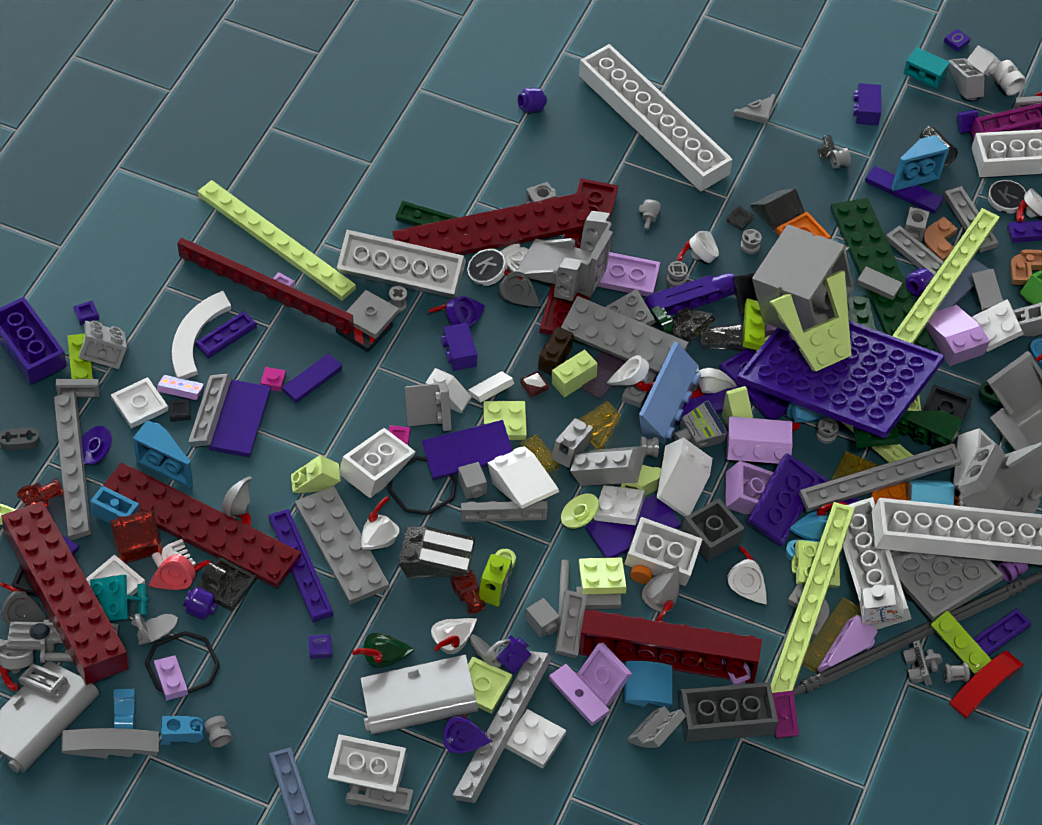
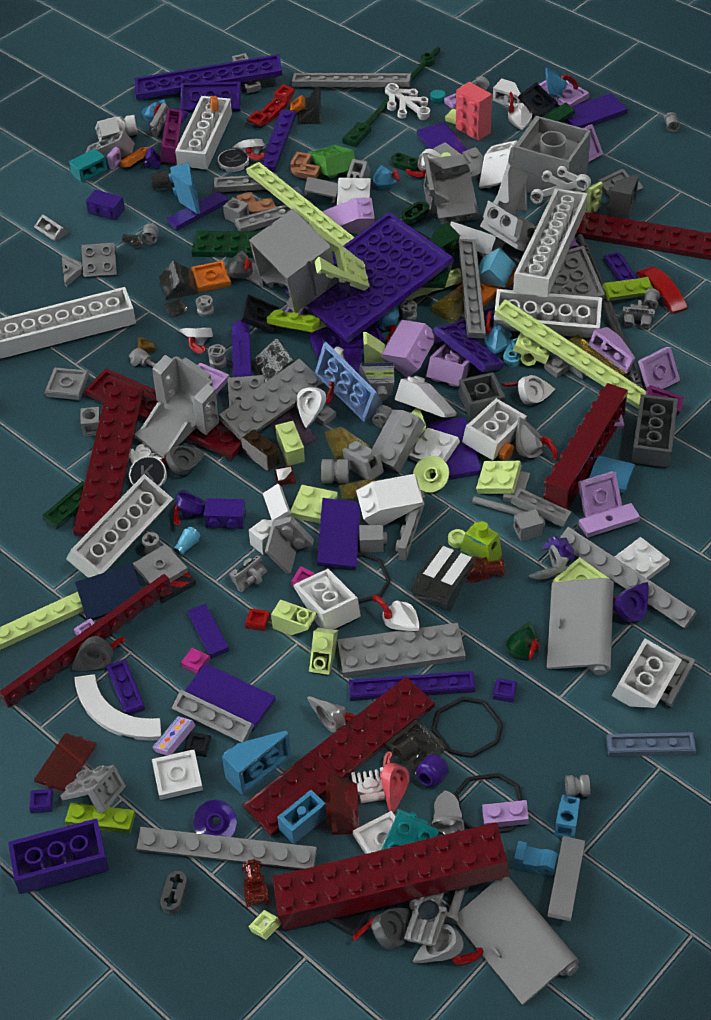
camera: 65 degrees left, 5 degrees down
(39, 682) = (487, 928): light grey tile -> none
(81, 387) = (138, 820): light grey tile -> none
(130, 315) = (65, 762): none -> clear red piece
(250, 296) = (94, 654): none -> dark grey piece
(267, 653) = (469, 700): none -> black piece
(325, 280) = (107, 590): none -> dark blue tile
(339, 414) = (257, 619): none -> red tile
(342, 436) = (291, 618): none -> yellowish green slope
(389, 389) = (250, 573): none -> light grey hips
(415, 326) = (187, 540): none -> medium azure cone
(452, 634) = (523, 592): white piece -> none
(550, 422) = (335, 471): none -> light grey wheel
(587, 162) = (67, 383): none -> light grey plate
(656, 727) = (657, 476): light grey slope -> none
(663, 319) = (267, 369): dark green plate -> none
(671, 209) = (146, 345): none -> pearl gold tile
(723, 337) = (297, 339): clear smoke plant -> none
(778, 127) = (99, 259): none -> light grey bracket
(813, 71) = (50, 228): none -> light grey slope
(826, 698) = (659, 369): none -> lavender tile
(881, 604) = (600, 303): white torso -> none
(950, 86) = (114, 158): none -> lavender tile
(957, 39) = (68, 144): dark purple tile -> none
(963, 104) = (134, 157): none -> orange tile

